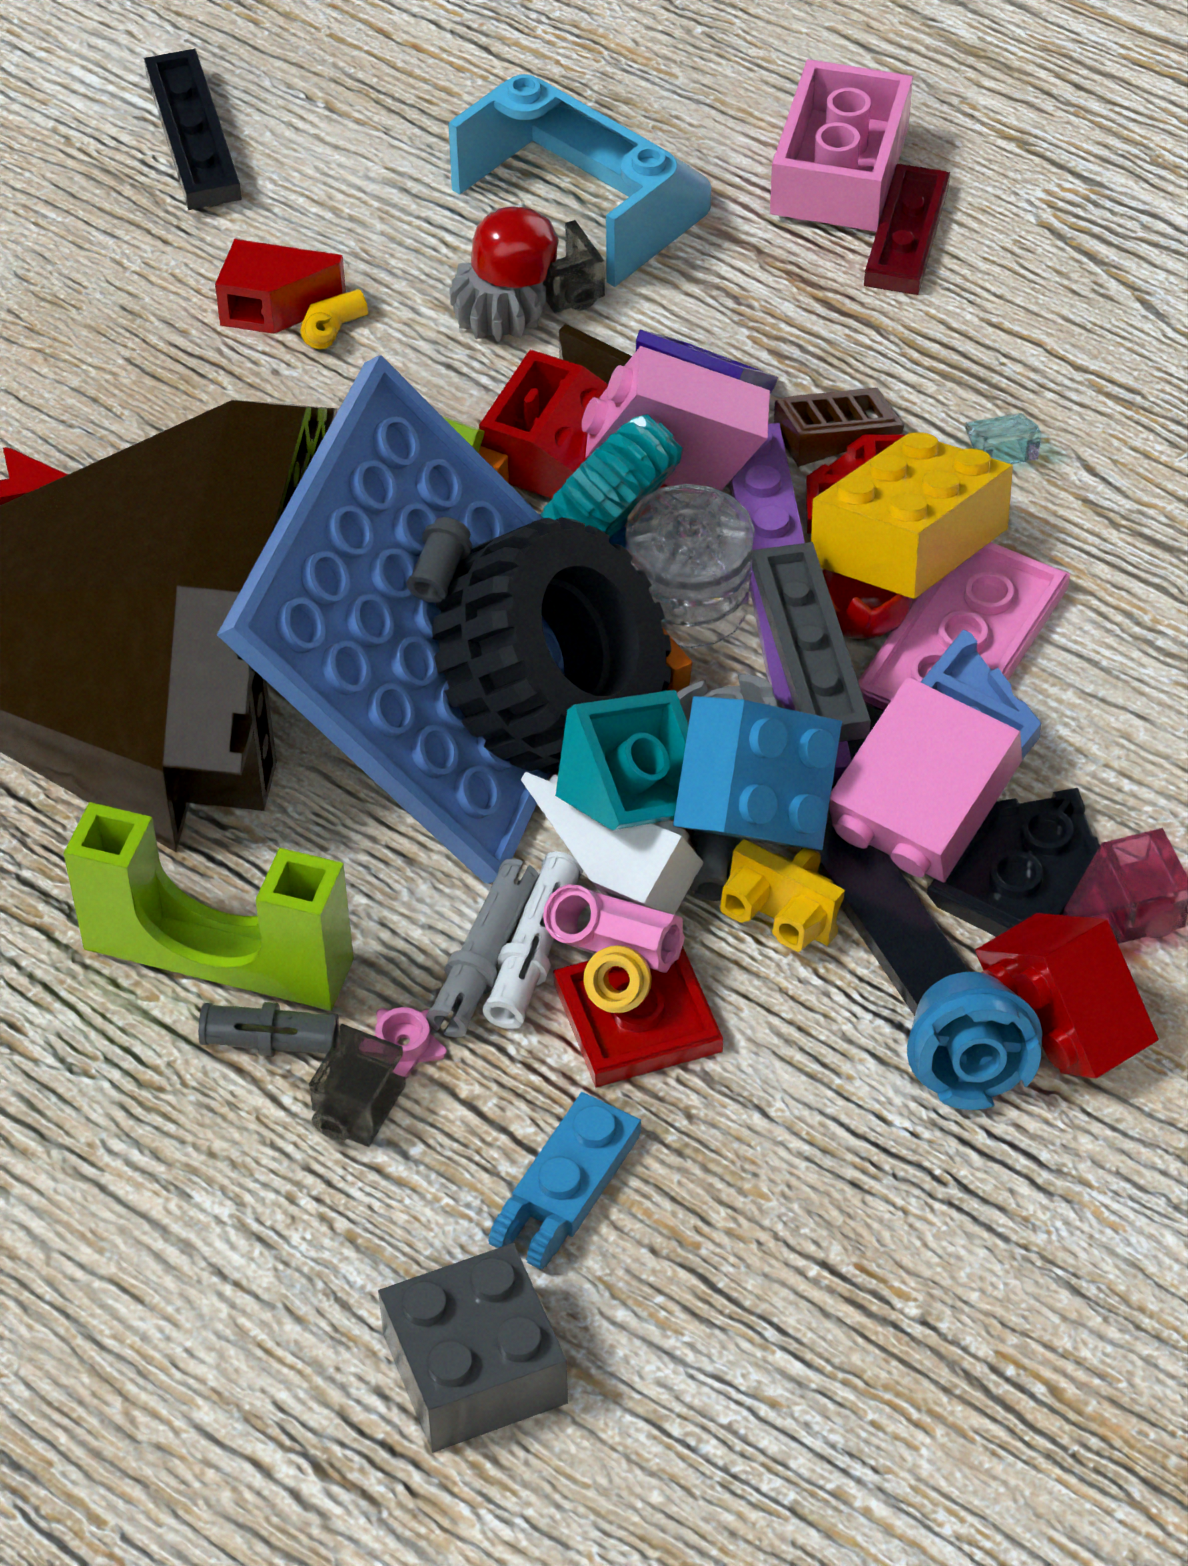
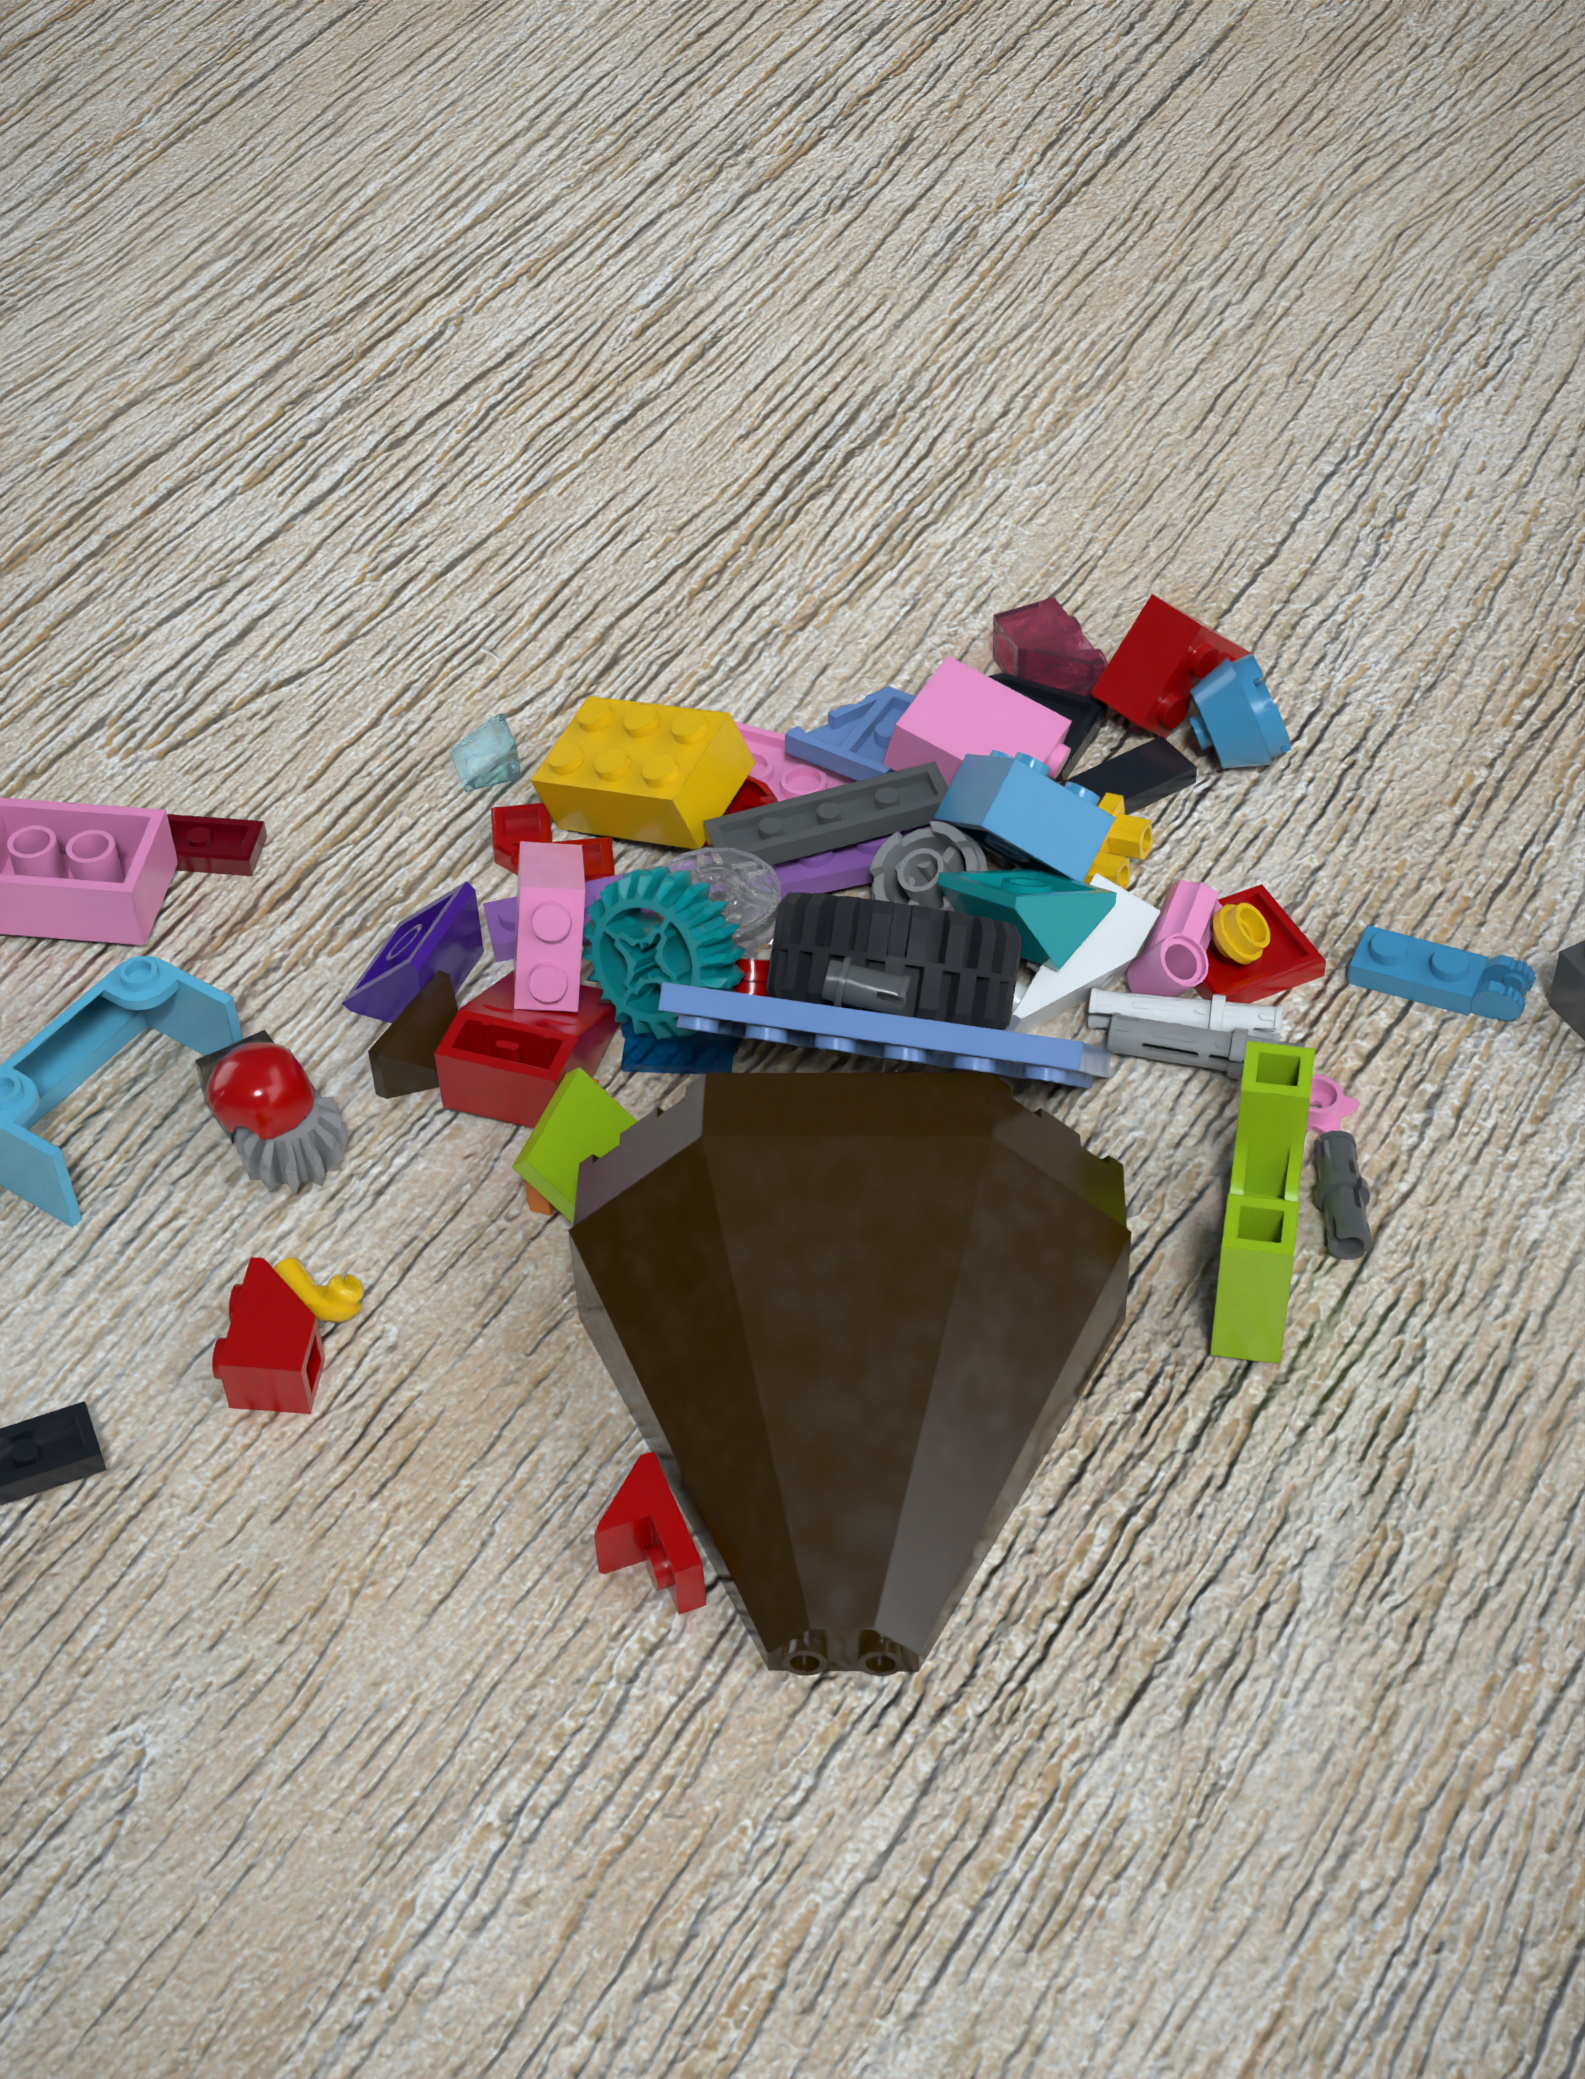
camera: 95 degrees left, 5 degrees down
(356, 1087) = (1400, 1110): clear smoke window -> none
(812, 438) = (475, 859): reddish brown slope -> none

